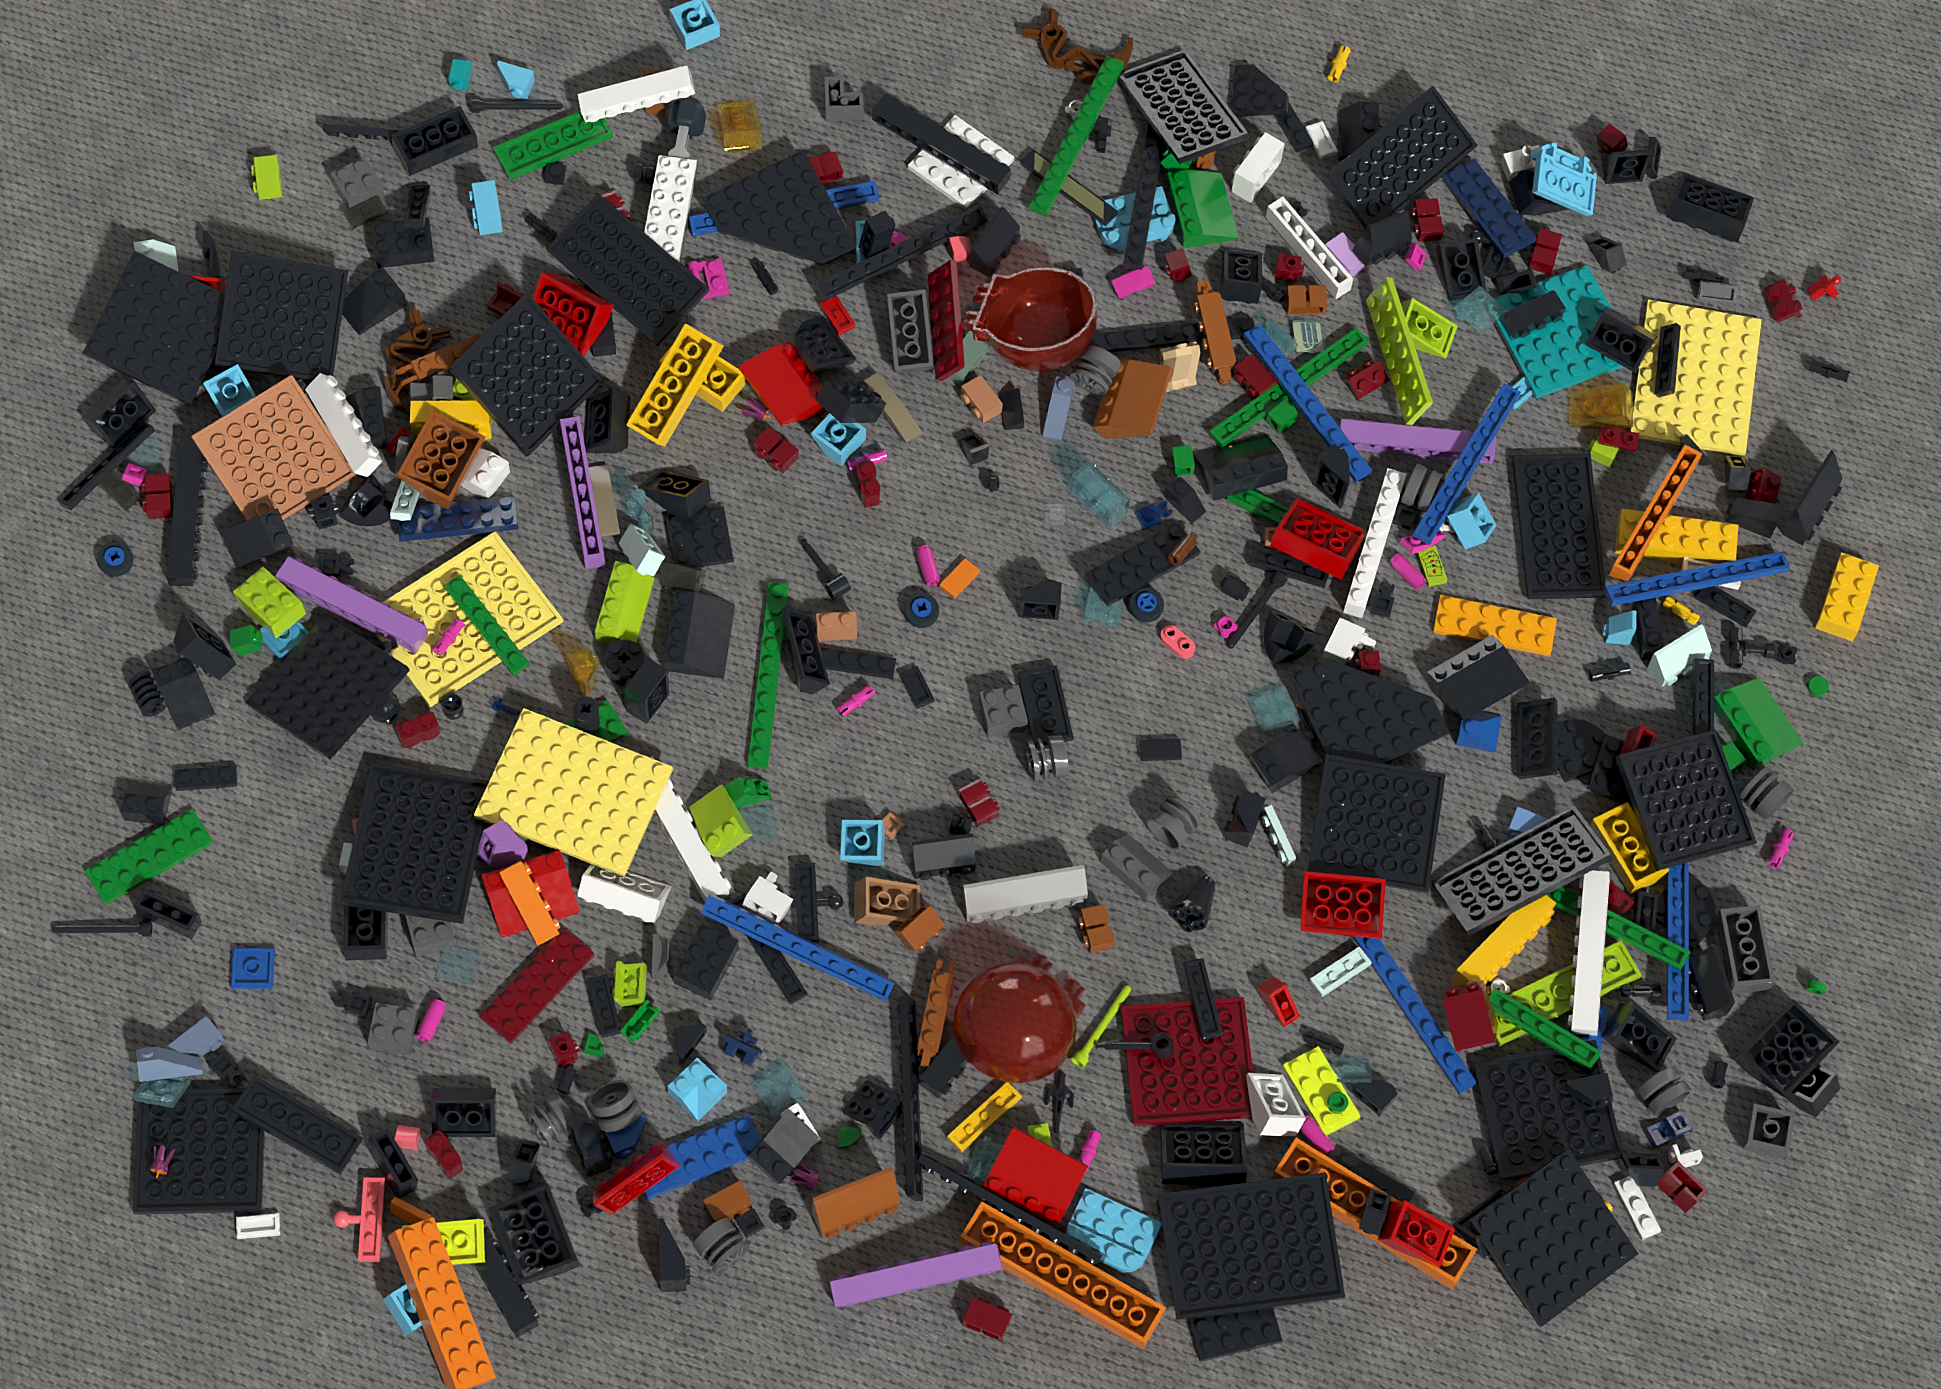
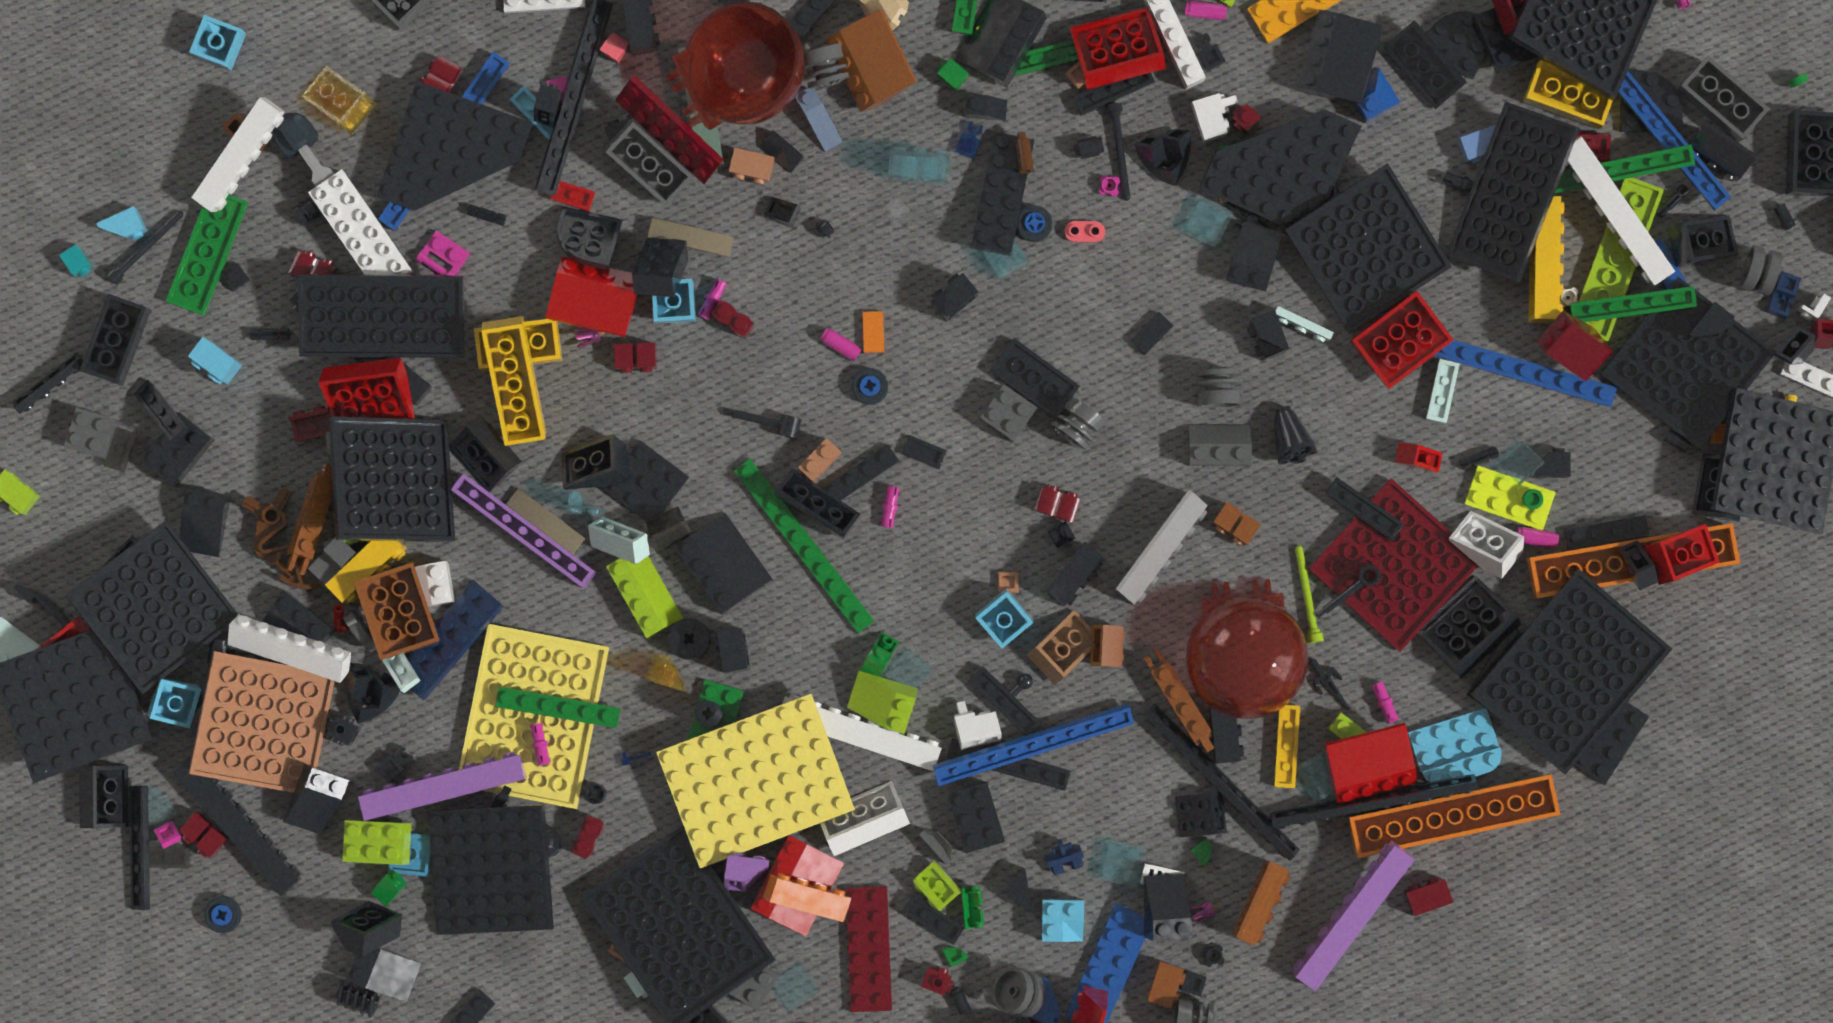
camera: 35 degrees left, 20 degrees up
(1645, 910) = (1624, 136): black slope -> none

